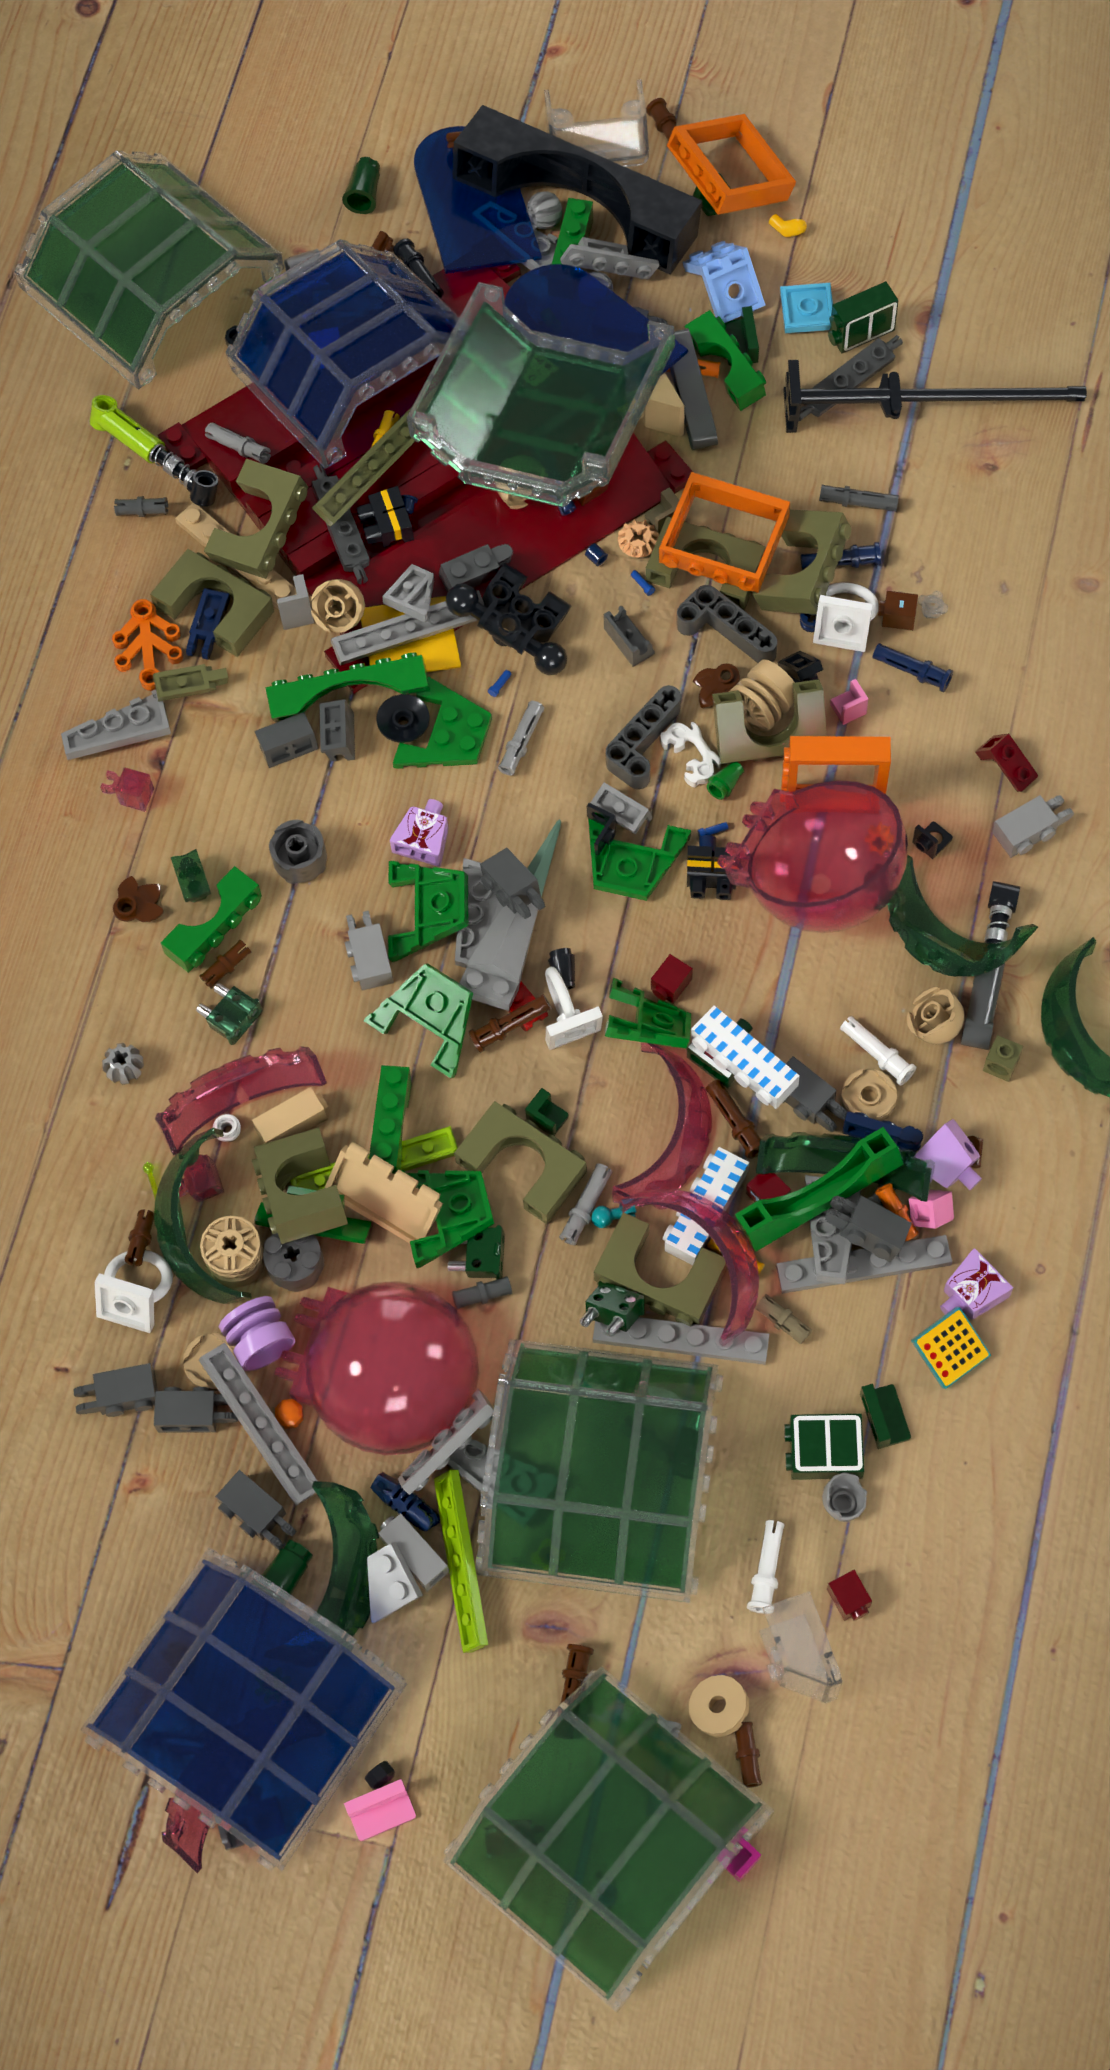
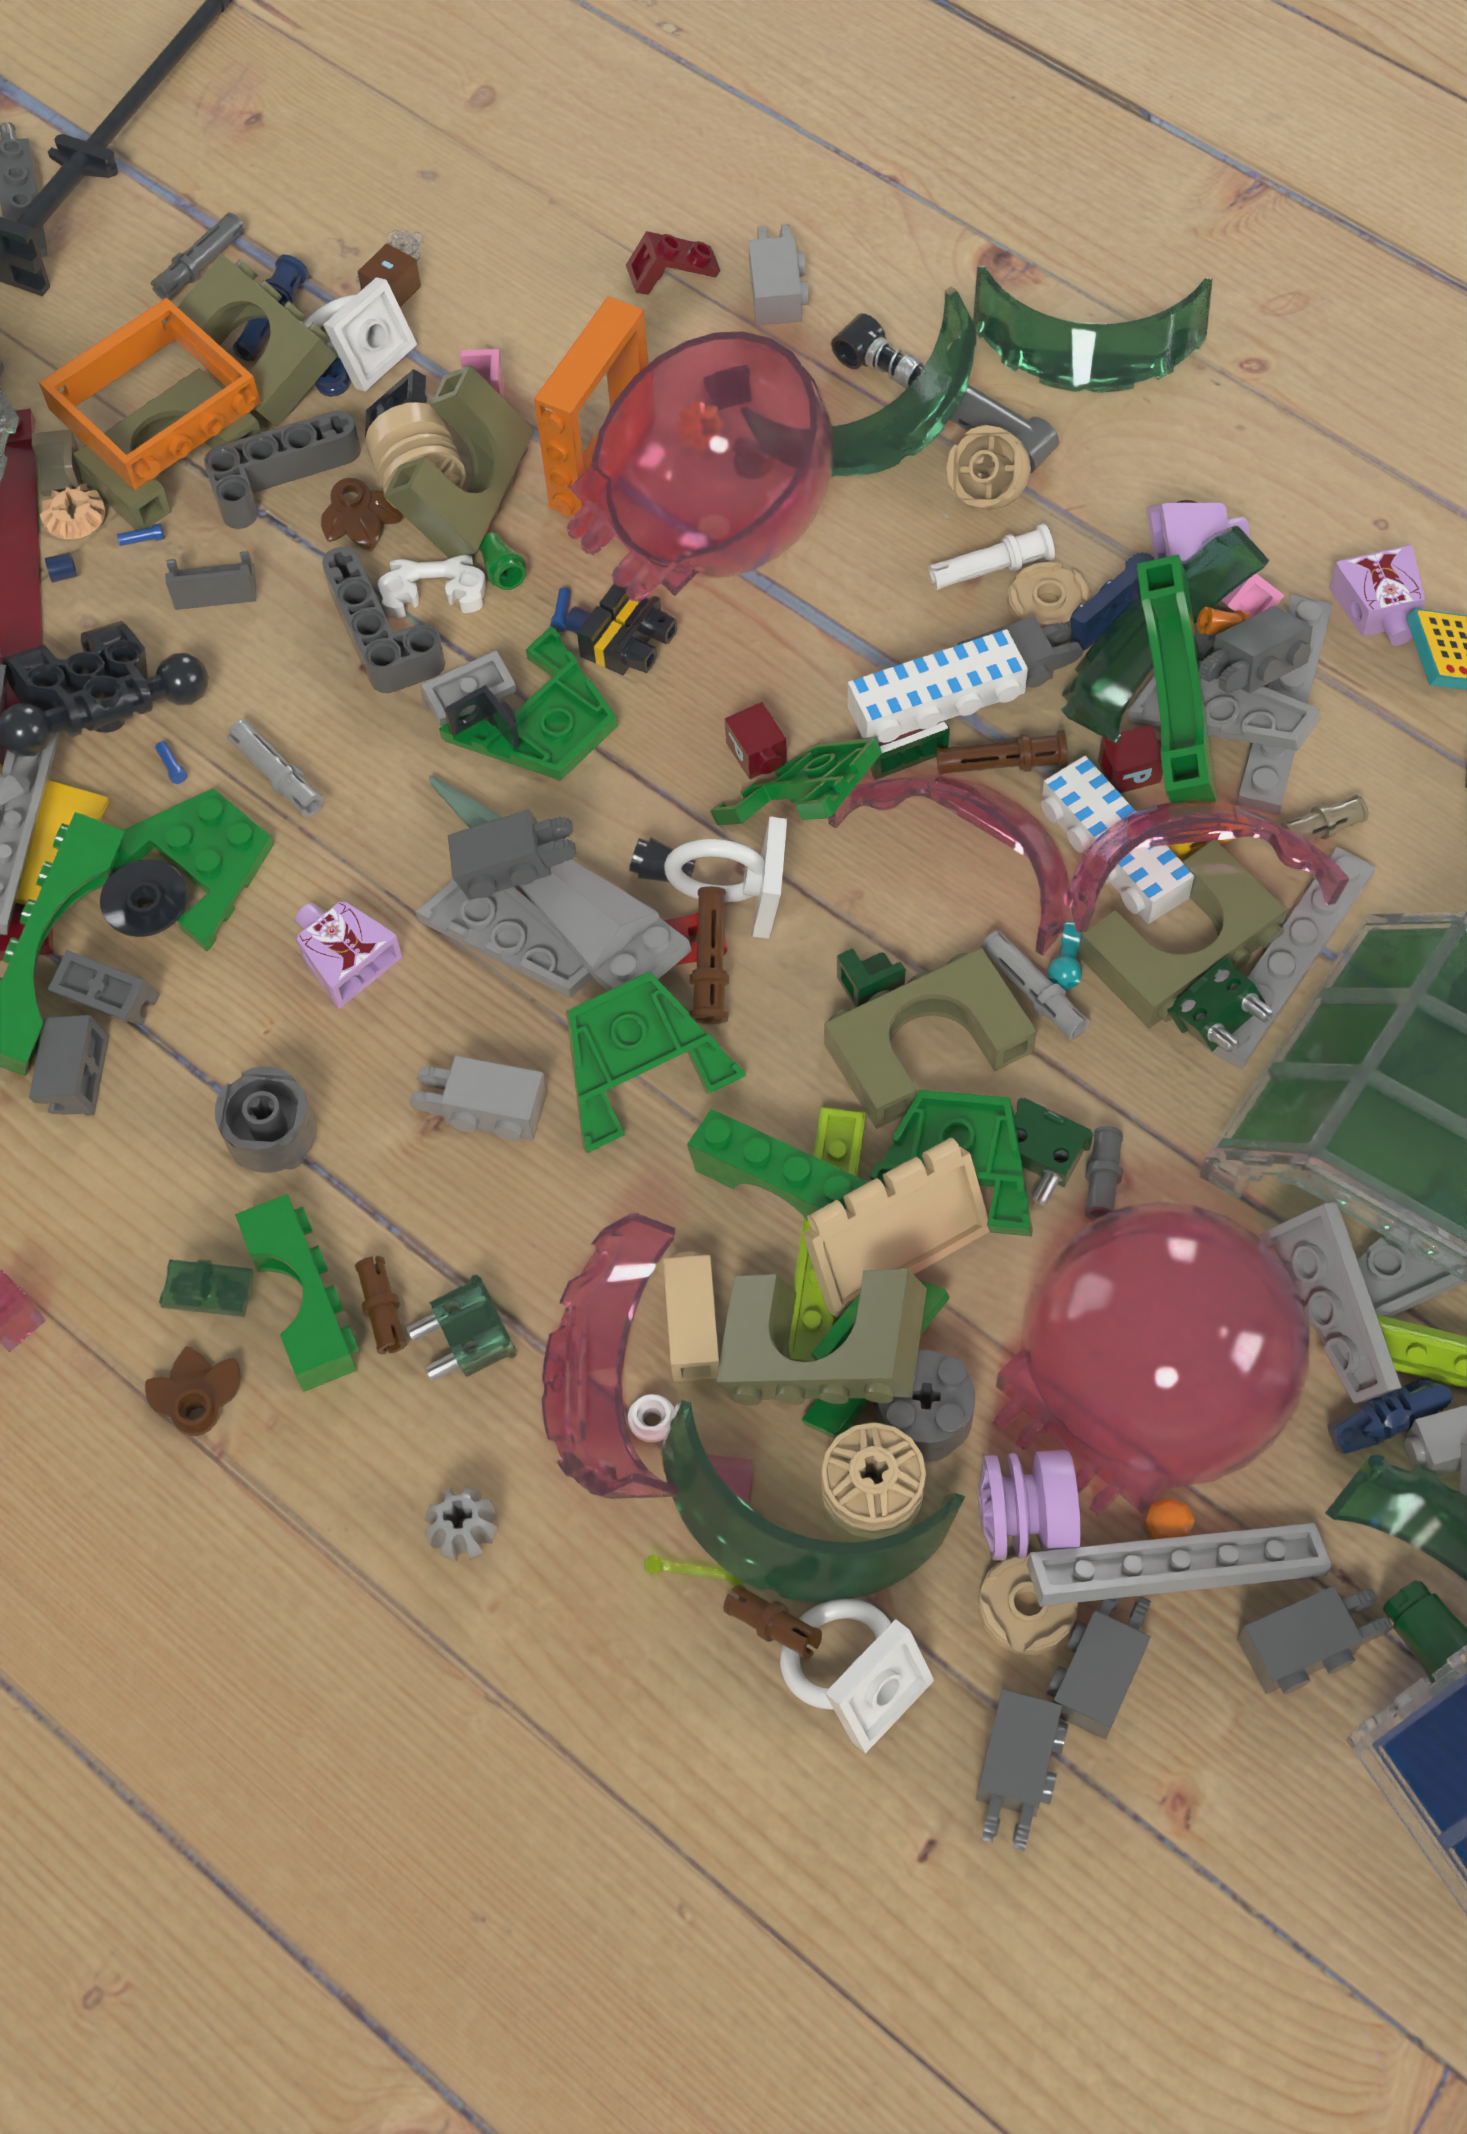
camera: 65 degrees left, 5 degrees down
(439, 906) = (468, 968): green wing -> none
(924, 671) = (490, 292): dark blue pin -> none
(1002, 1058) = (1082, 431): olive brick -> none

